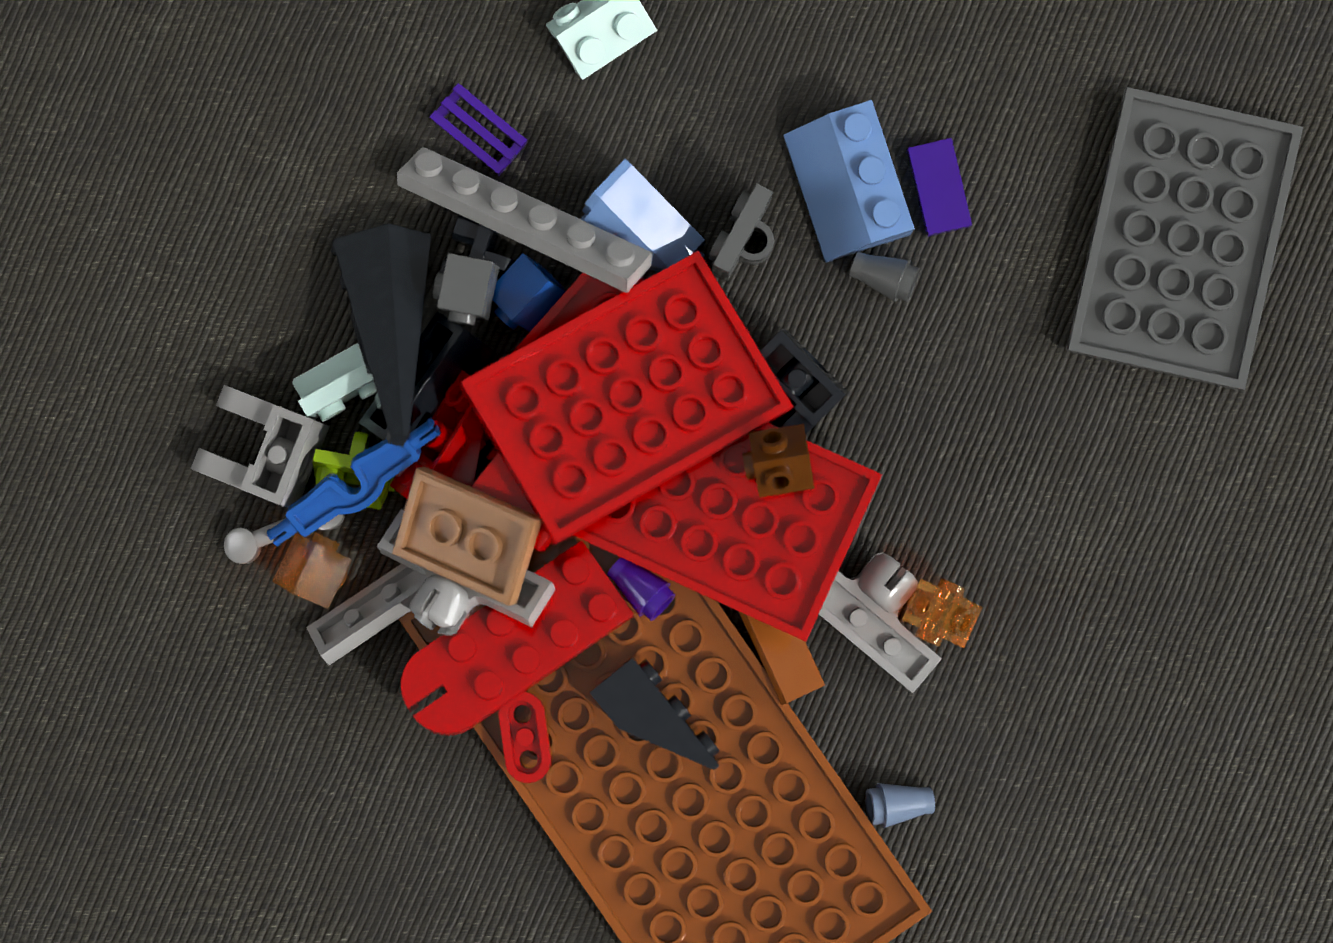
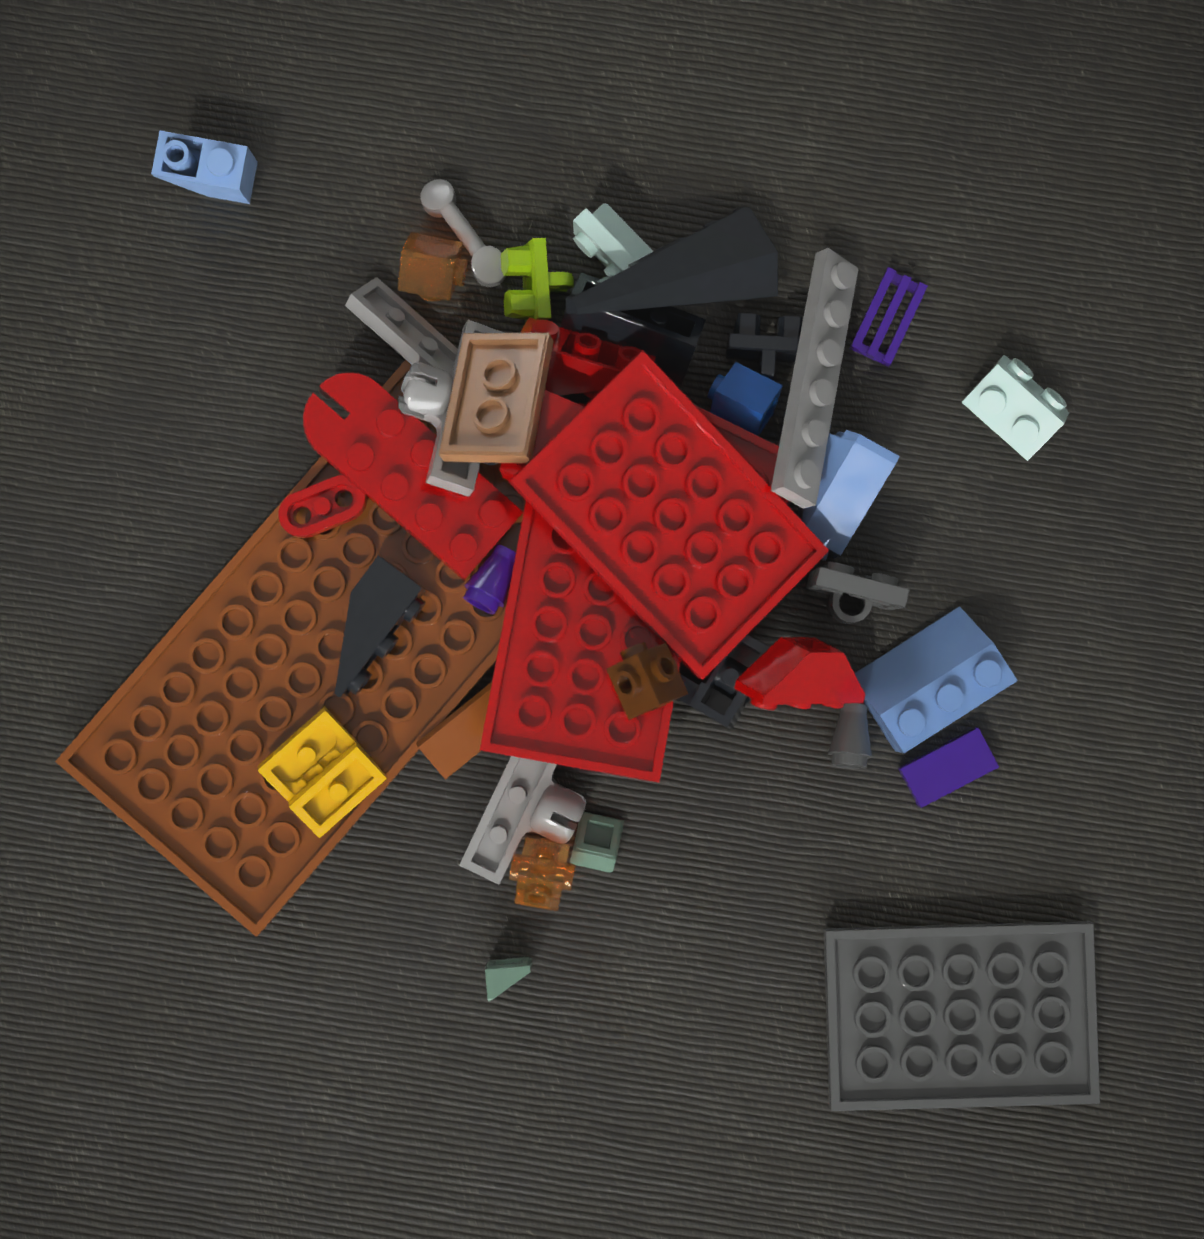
camera: 70 degrees right, 0 degrees up
(153, 769) = (205, 166): none -> light blue slope
(283, 459) = (529, 211): light grey brick -> none
(335, 497) = (504, 266): blue piece -> none
(466, 288) = (734, 338): dark grey brick -> none
(787, 804) = (321, 772): none -> yellow slope
(812, 310) = (800, 674): none -> red slope
(897, 803) = (350, 876): sand blue cone -> none
(924, 552) = (597, 842): none -> sand green slope
(1030, 675) = (504, 973): none -> sand green slope

